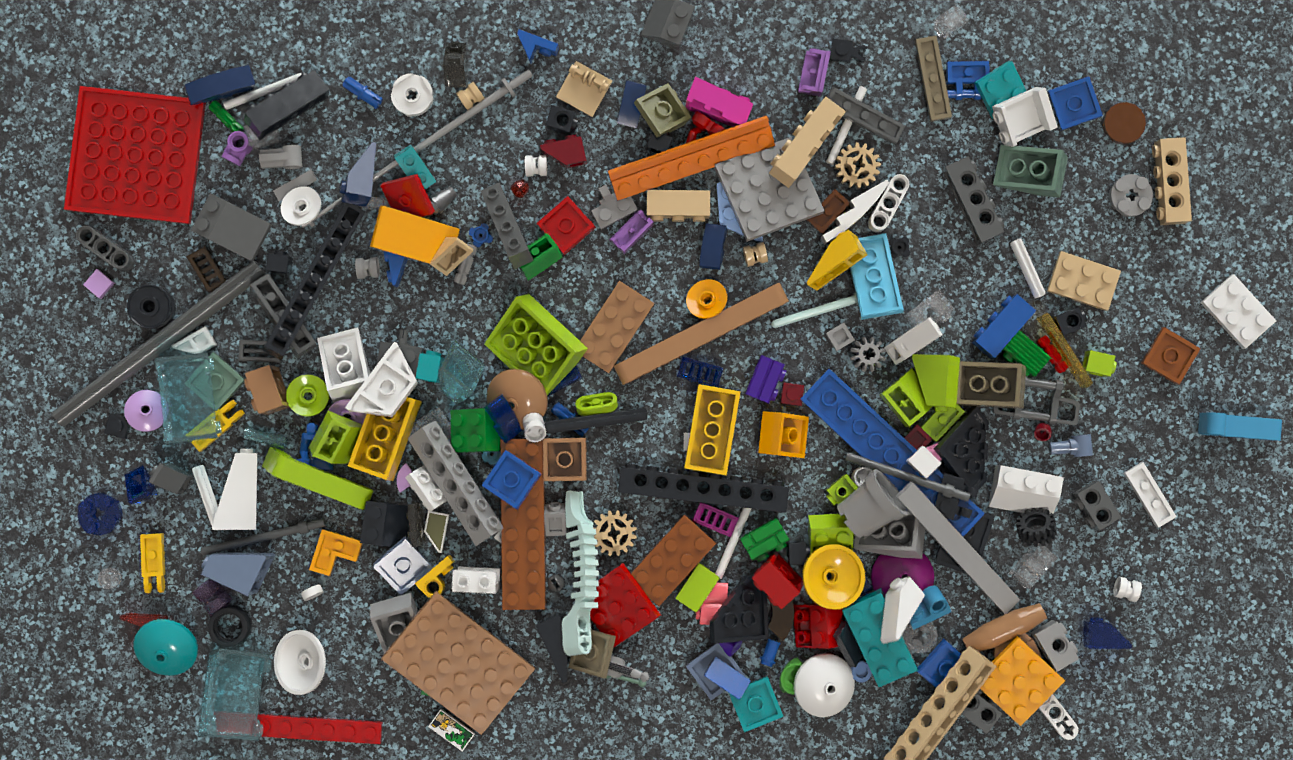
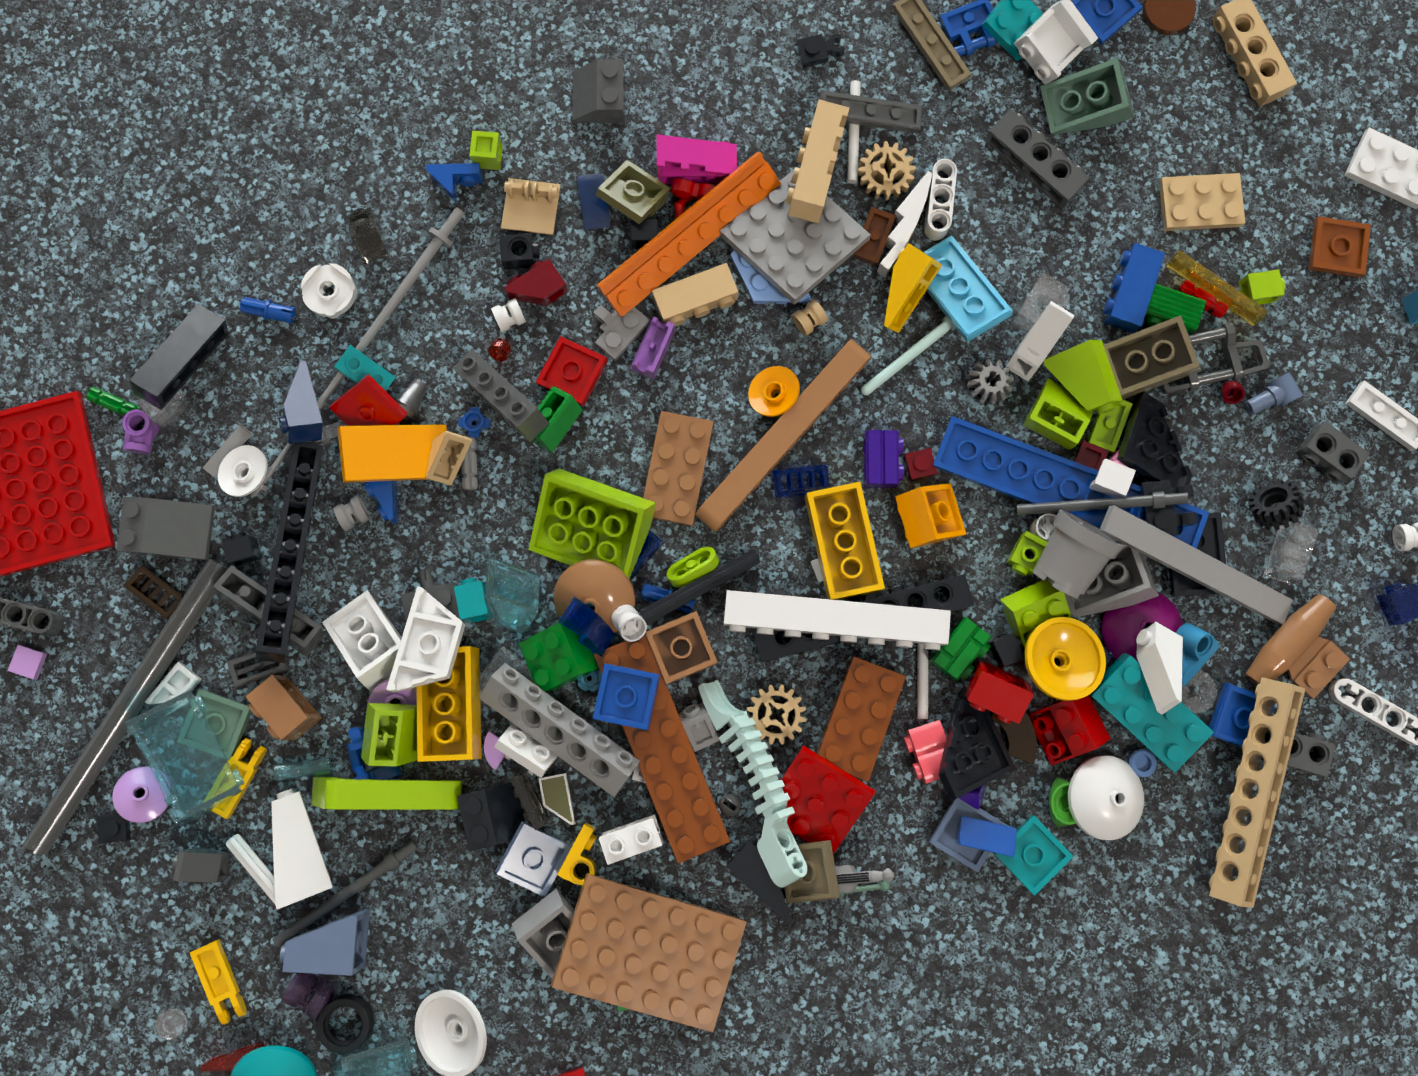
camera: 25 degrees left, 5 degrees down
(91, 523) = (145, 952): clear blue plate -> none
(138, 306) = (85, 664): black wheel -> none
(138, 486) = (165, 894): clear blue slope -> none
(220, 85) = (91, 365): dark blue slope -> none
(259, 92) = (127, 371): white bar -> none
(288, 157) = (205, 420): light grey piece -> none
(297, 391) = (322, 692): lime dish -> none
(312, 592) = (433, 938): white tile -> none
(329, 547) = (434, 870): light orange plate -> none
(451, 729) = (673, 1041): tile -> none
(470, 96) = (398, 264): tan wheel -> none
(567, 35) = (486, 149): none -> lime brick
(683, 483) = (837, 618): none -> white brick
(697, 587) = (905, 739): lime panel -> none
(698, 514) = (868, 654): magenta slope -> none
(712, 246) = (756, 328): dark blue slope -> none
(770, 653) = (1024, 785): blue pin -> none
(814, 72) = (792, 85): medium lavender hinge -> none
(840, 336) = (948, 374): light grey plate -> none
(847, 643) = (1115, 735): black tile -> none
(903, 242) = (974, 238): black plate -> none
(1020, 681) = (1340, 696): light orange plate -> none
(1024, 489) = (1239, 467): white slope -> none
(1027, 268) = (1132, 212): white axle -> none
(1046, 636) = (1343, 631): light grey brick -> none
(1079, 317) = (1216, 244): black brick -> none
(1124, 205) = (1218, 72): light grey plate -> none

